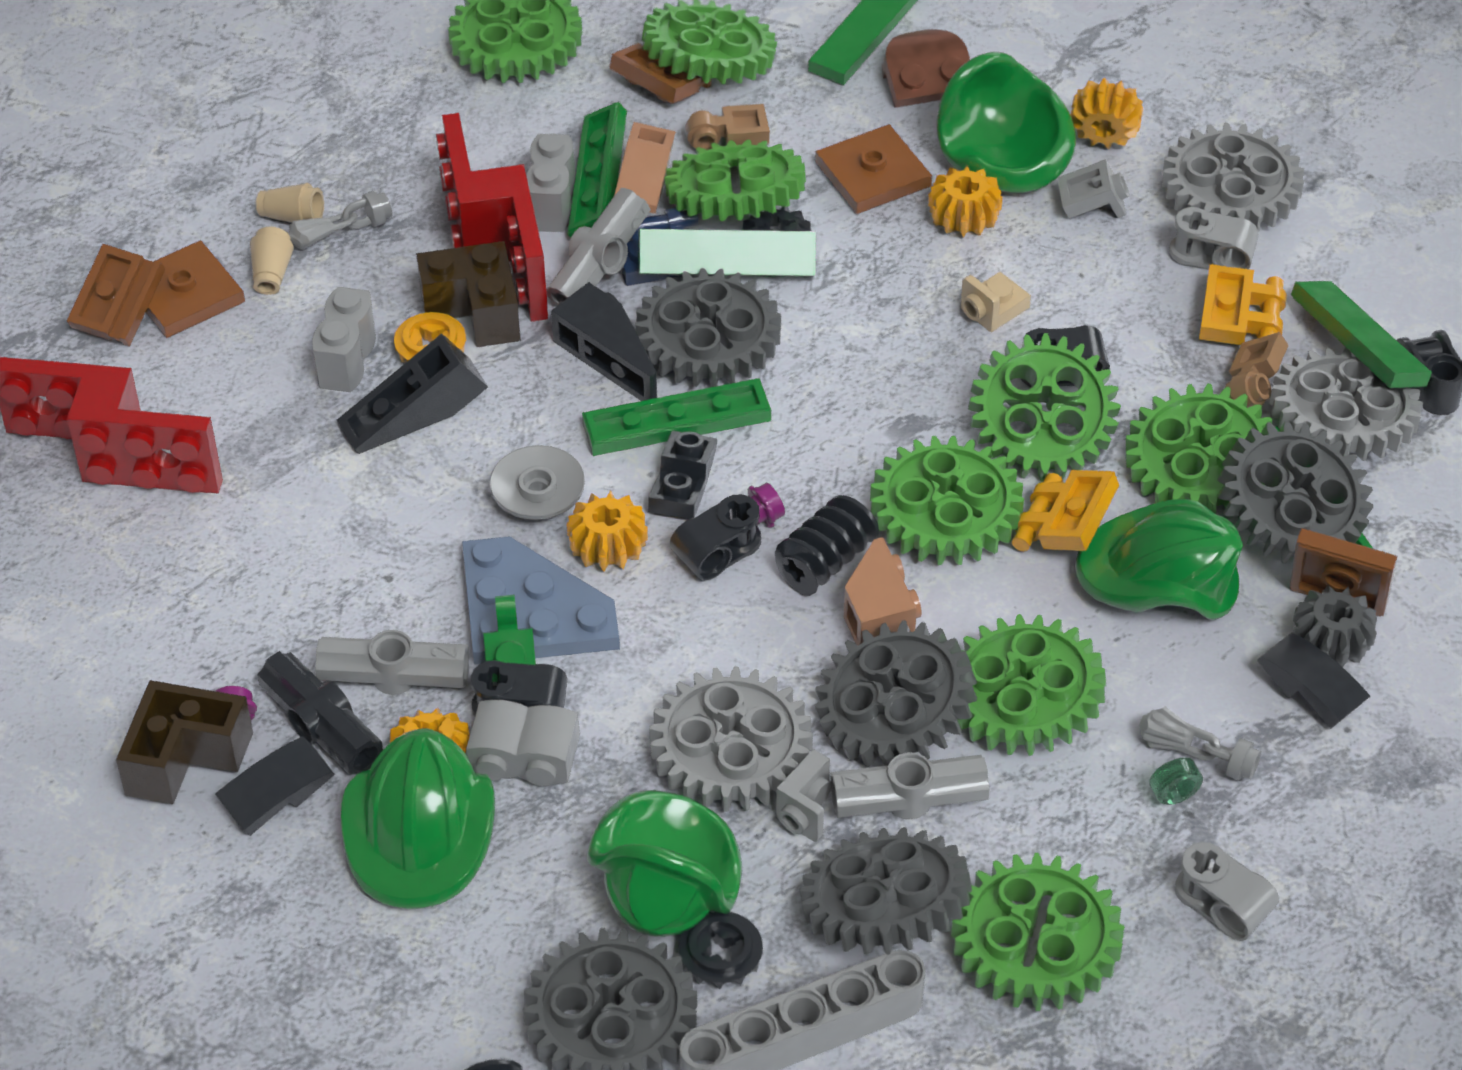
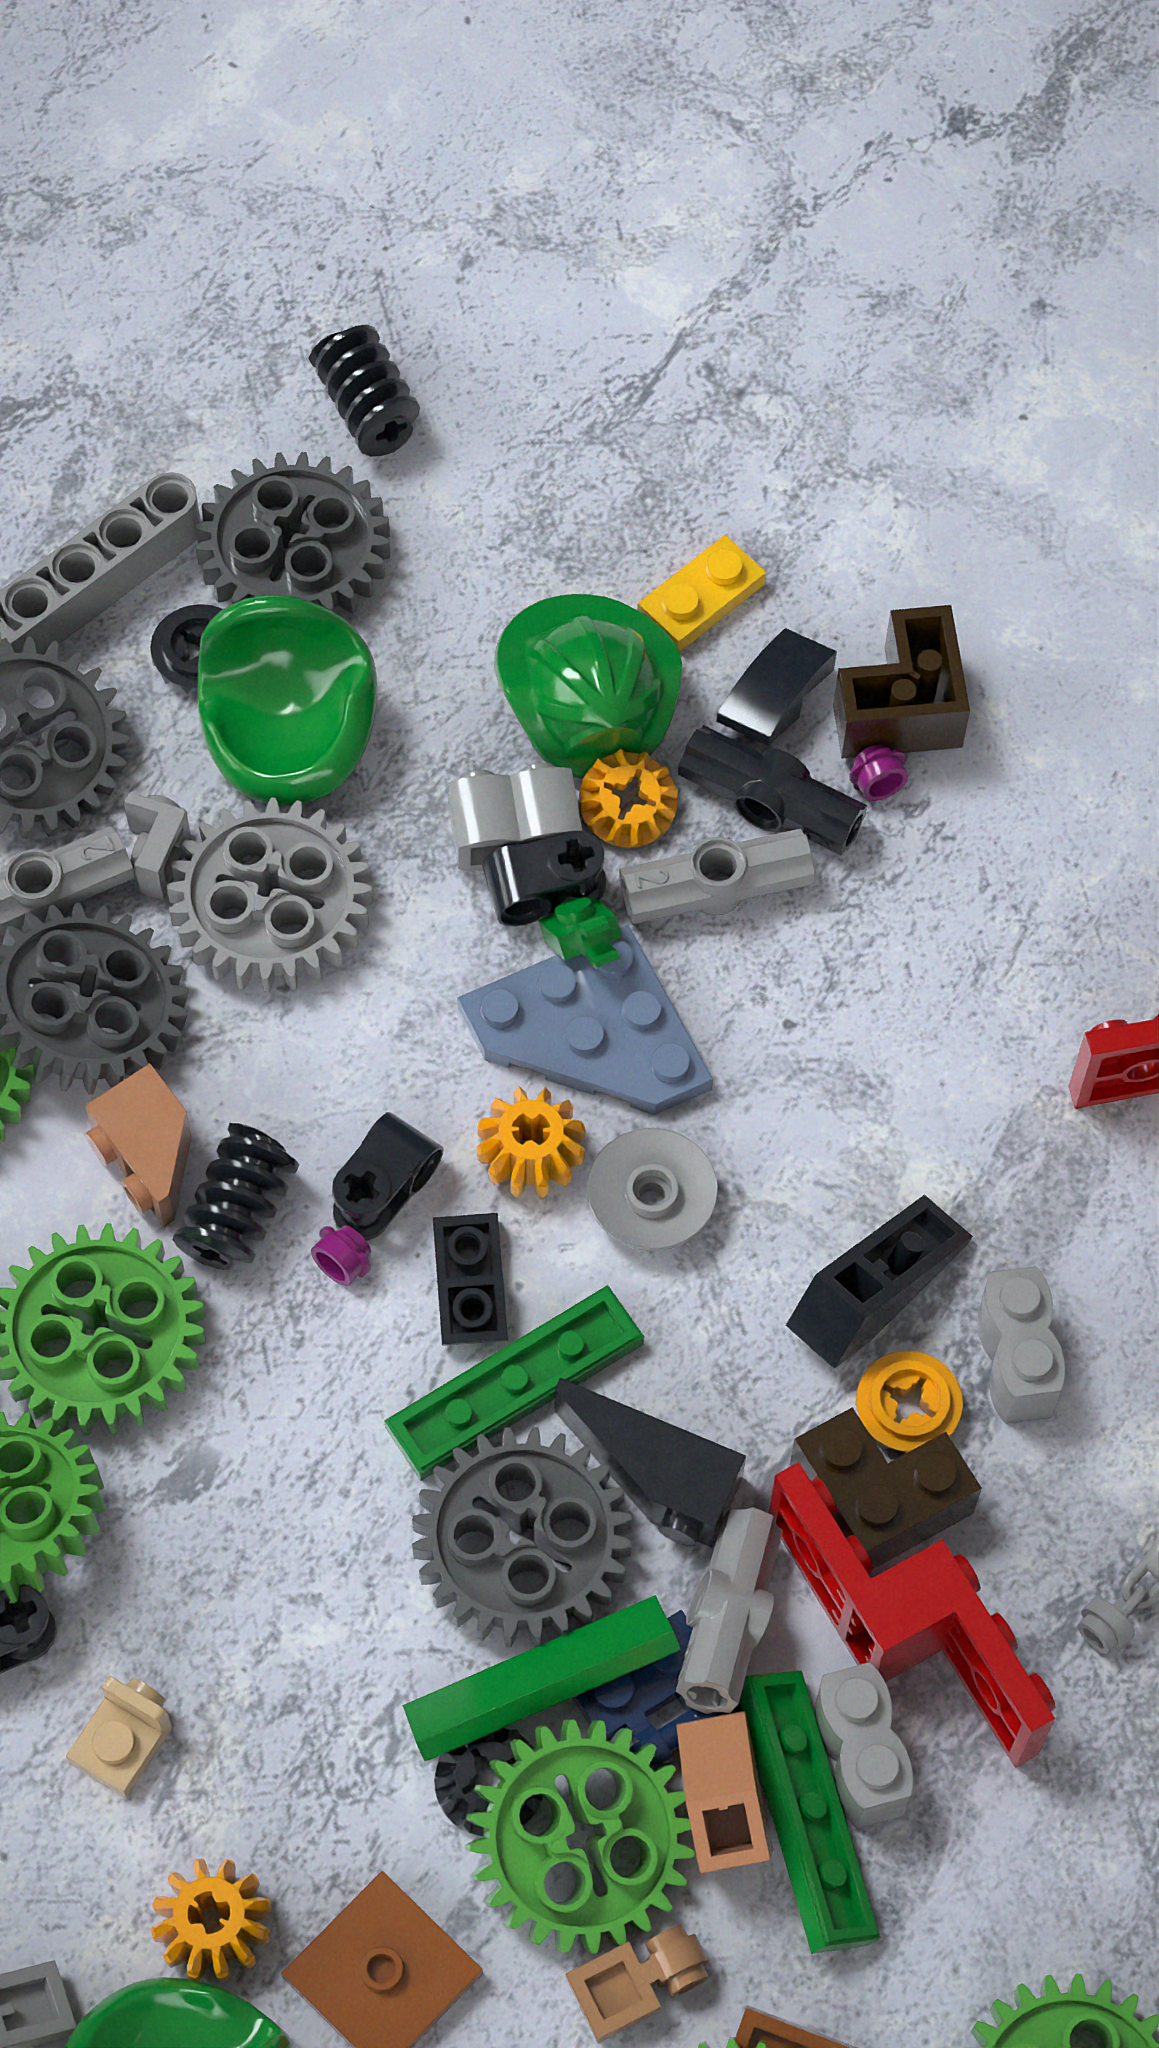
camera: 160 degrees right, 15 degrees up
(292, 886) = (703, 592): none -> yellow plate

